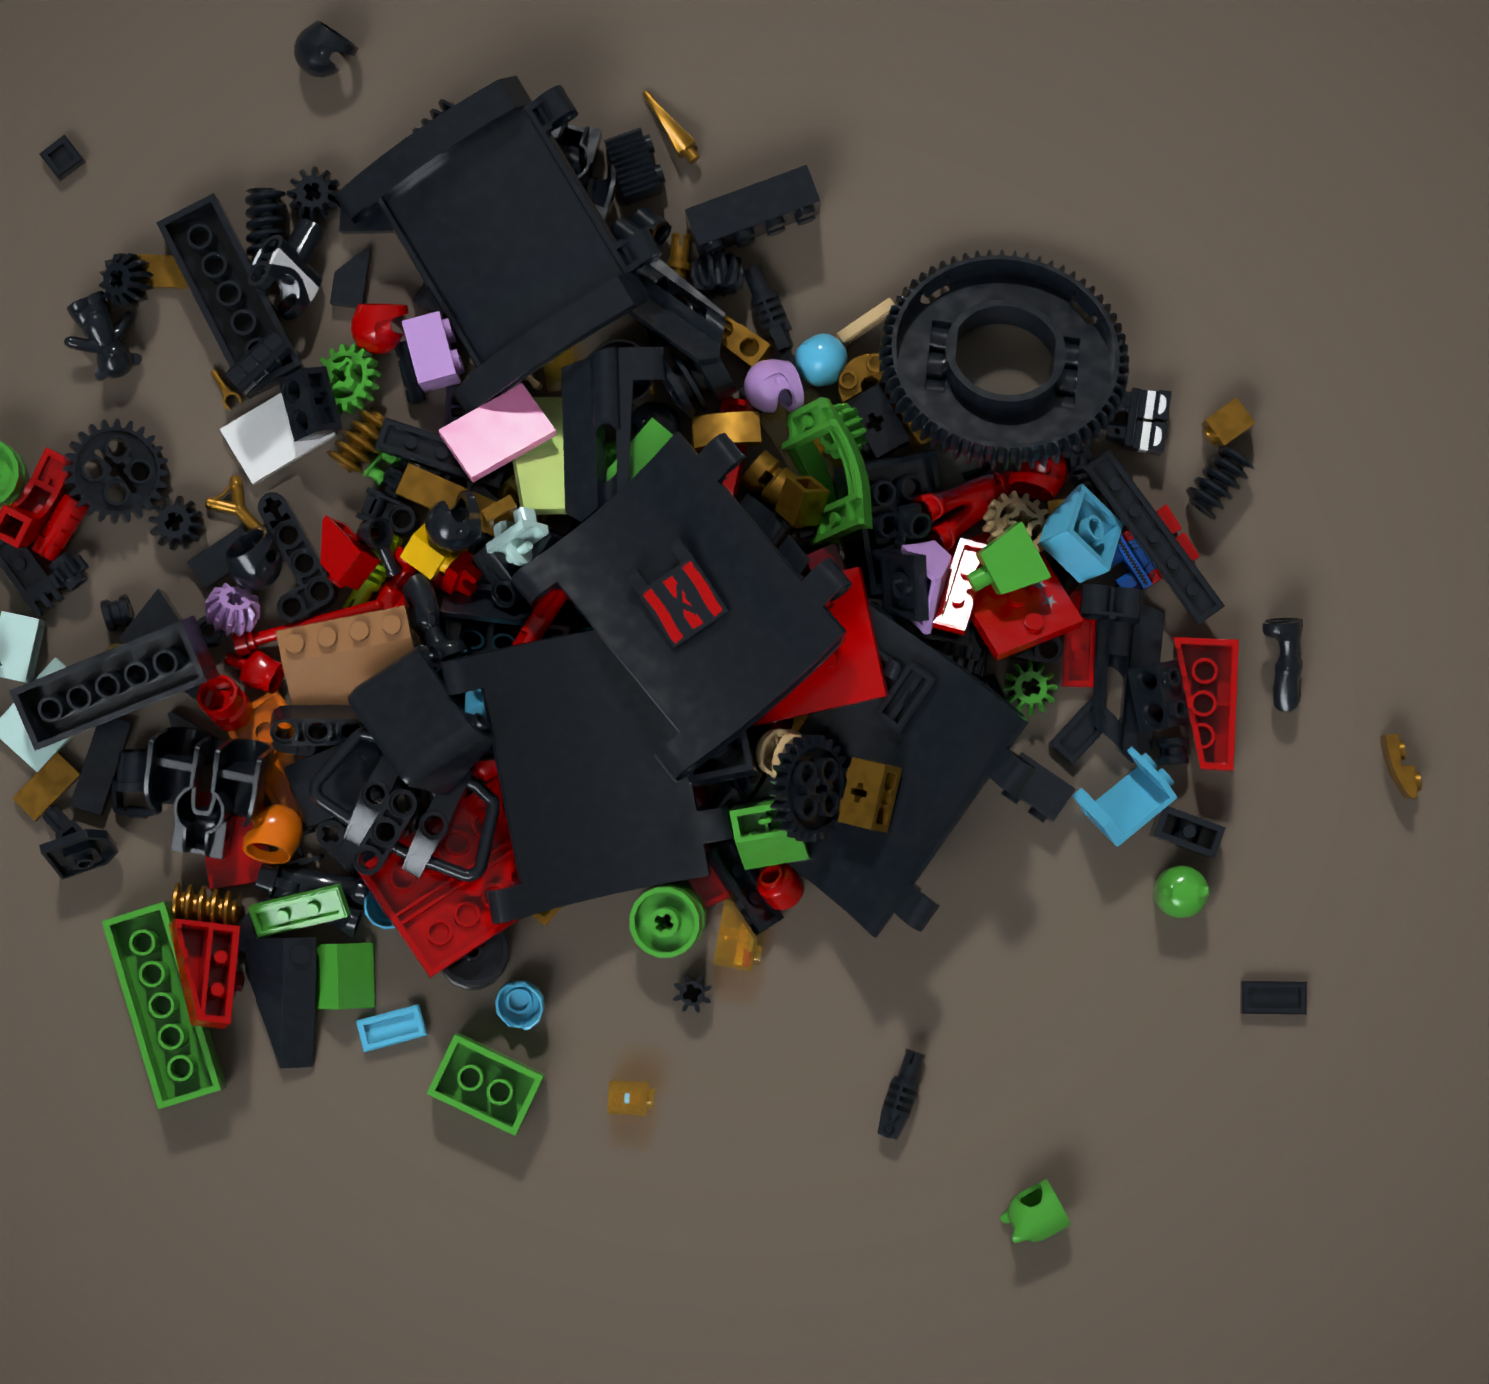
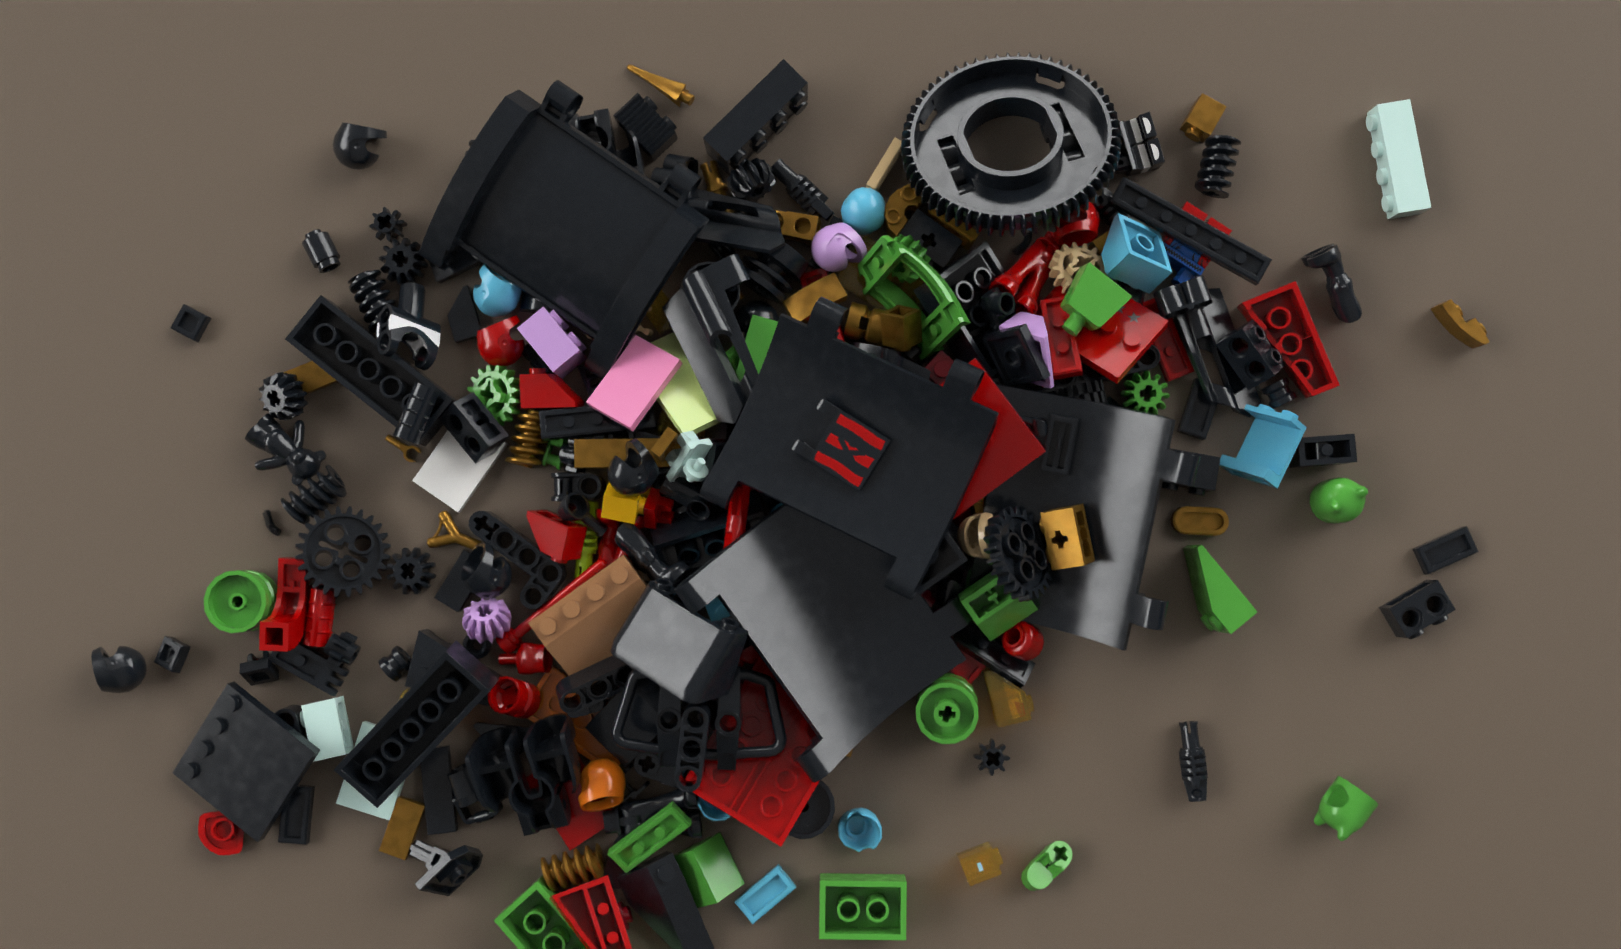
camera: 30 degrees left, 0 degrees up
(52, 415) = (273, 528): none -> black leg
(112, 399) = (315, 497): none -> black piece
(233, 144) = (321, 251): none -> black brick
(323, 144) = (384, 217): none -> black gear
(393, 274) = (494, 295): none -> medium azure helmet
(402, 399) = (546, 391): none -> red slope
(712, 1127) = (1036, 875): none -> bright green piece
(1004, 931) = (1215, 594): none -> bright green slope
(1027, 848) = (1199, 521): none -> pearl gold tile
(1211, 1036) = (1415, 603): none -> black brick
(1416, 561) = (1398, 159): none -> light aqua brick

